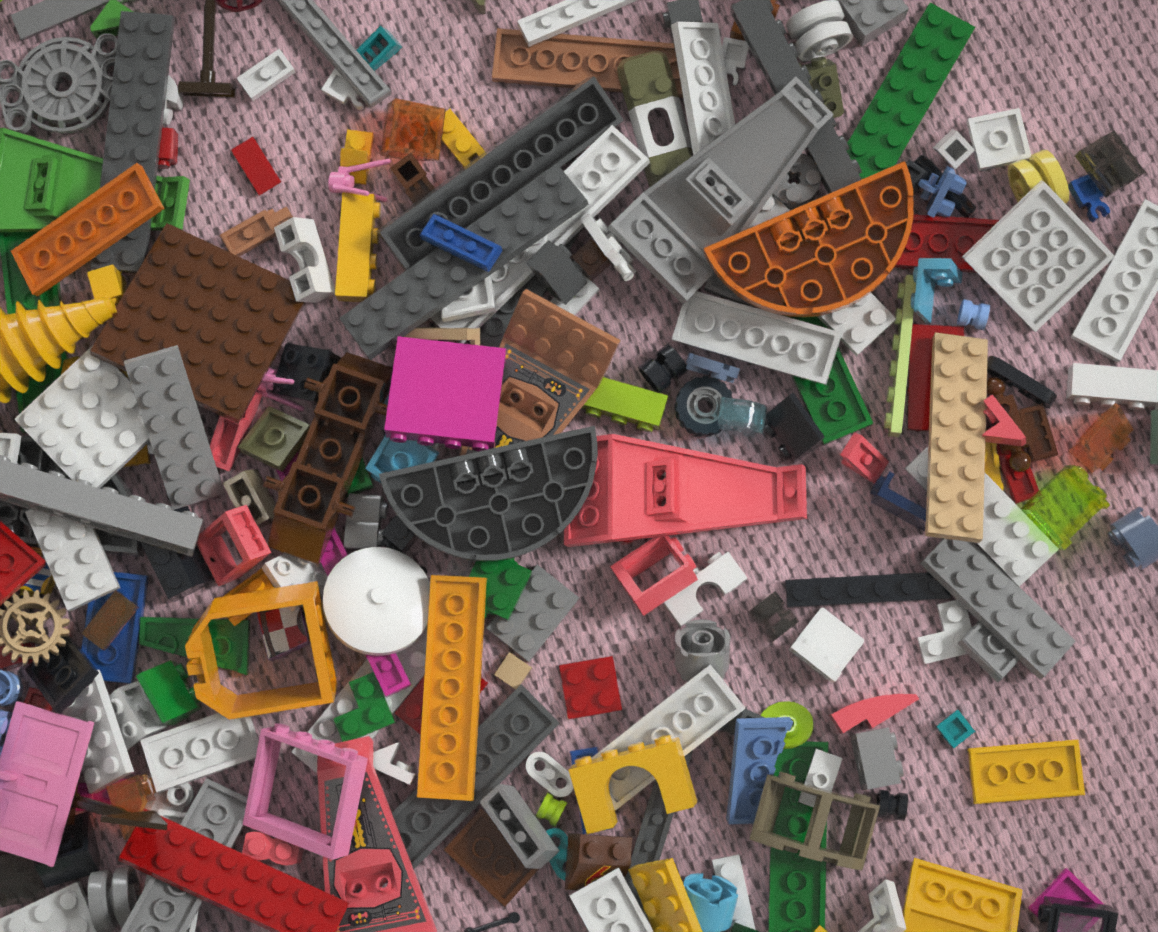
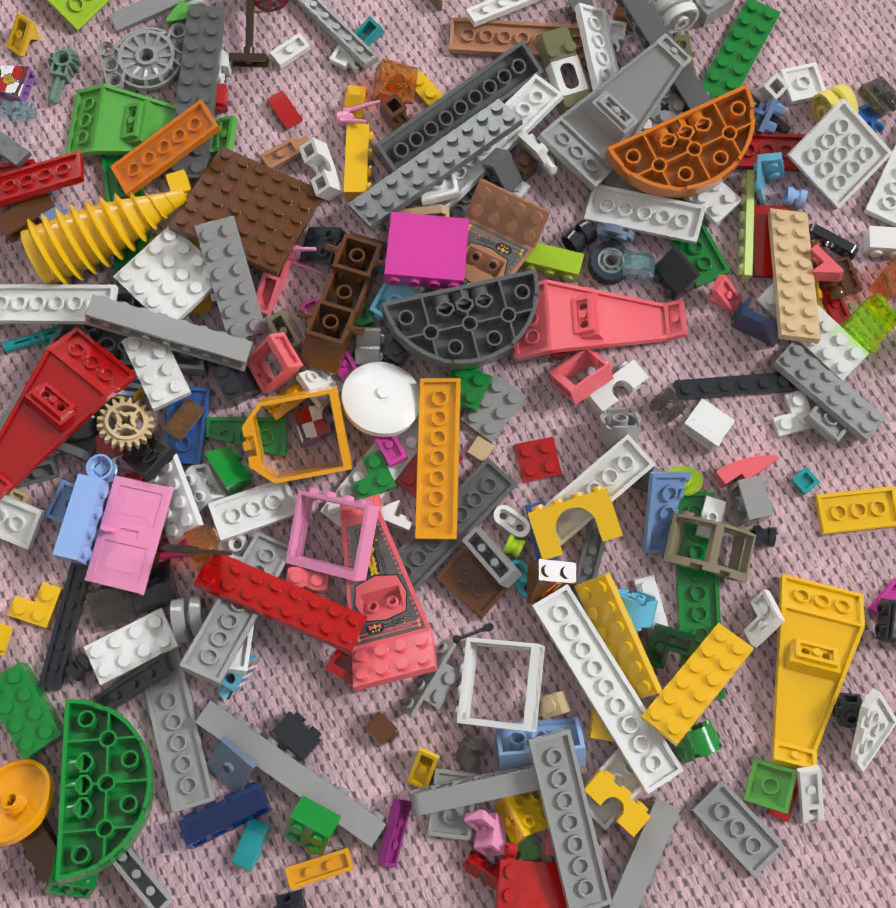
camera: 10 degrees left, 5 degrees down
(275, 438) = (302, 290): olive plate -> none
(461, 242) = (434, 149): blue tile -> none

